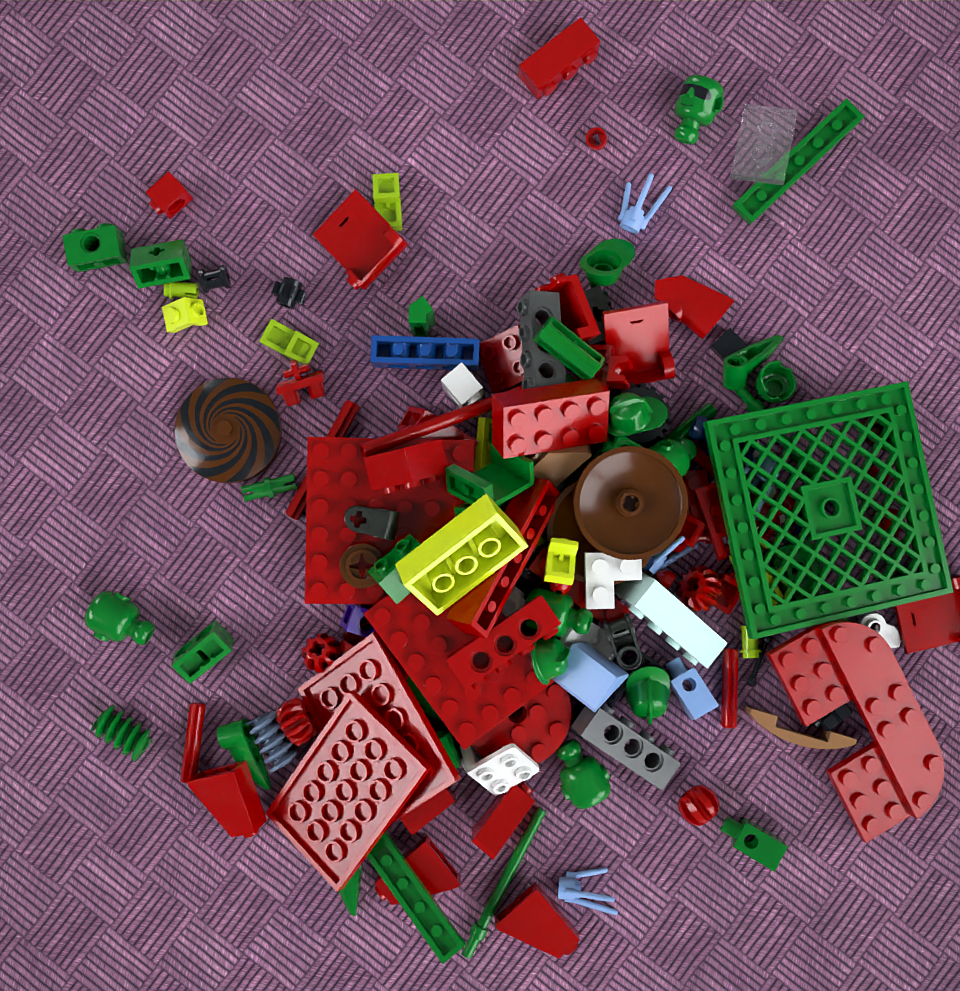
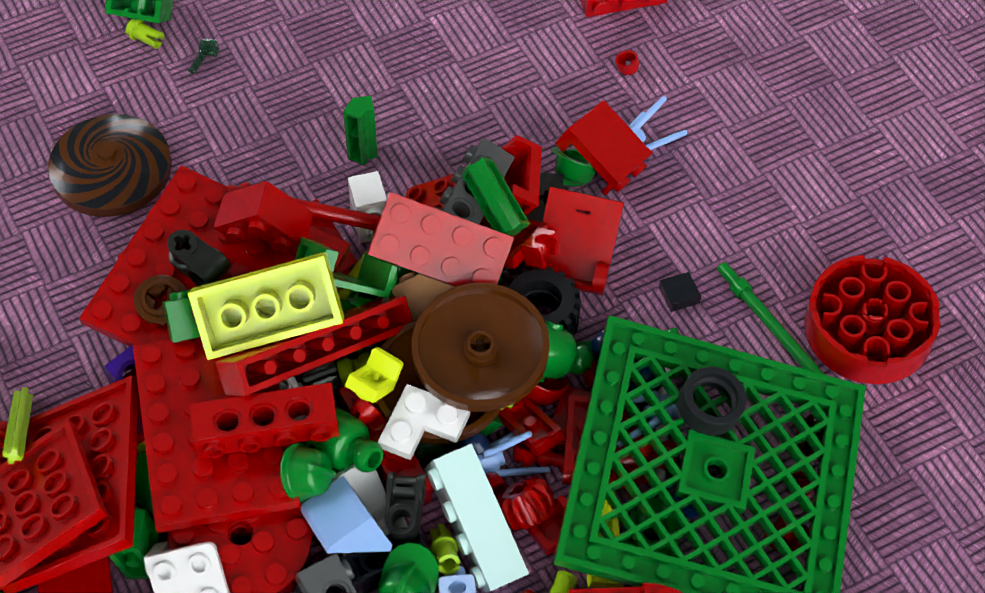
camera: 20 degrees right, 30 degrees down
(184, 314) = (134, 50): neon yellow bracket -> none
(206, 276) = (182, 35): black bush -> none
(241, 280) = (207, 47): none -> clear green hand
(269, 487) = (112, 225): green pin -> none
(288, 293) = (245, 71): black gear -> none
(288, 342) = (218, 114): lime slope -> none
(306, 701) = (17, 426): none -> lime axle
(312, 381) = (208, 143): red hips -> none
(320, 652) = (63, 388): red piece -> none
(360, 240) = (343, 57): red door -> none
(387, 198) = (389, 39): lime slope -> none
(424, 352) = (336, 160): blue brick -> none
(622, 243) = (607, 146): none -> red panel
(635, 414) = (534, 280): green piece -> none
(658, 649) = (444, 550): none -> lime axle
(692, 303) = (655, 233): red panel -> none
(697, 106) = (743, 70): green piece -> none
(743, 362) = (689, 310): green piece -> none
(764, 144) = (800, 126): clear tile -> none
(775, 323) = (743, 290): none -> green bar
(775, 382) = (715, 329): green hair -> none
(800, 160) = (831, 155): green plate -> none
(831, 456) = (721, 380): none -> black tyre
(914, 303) = (872, 319): none -> red brick

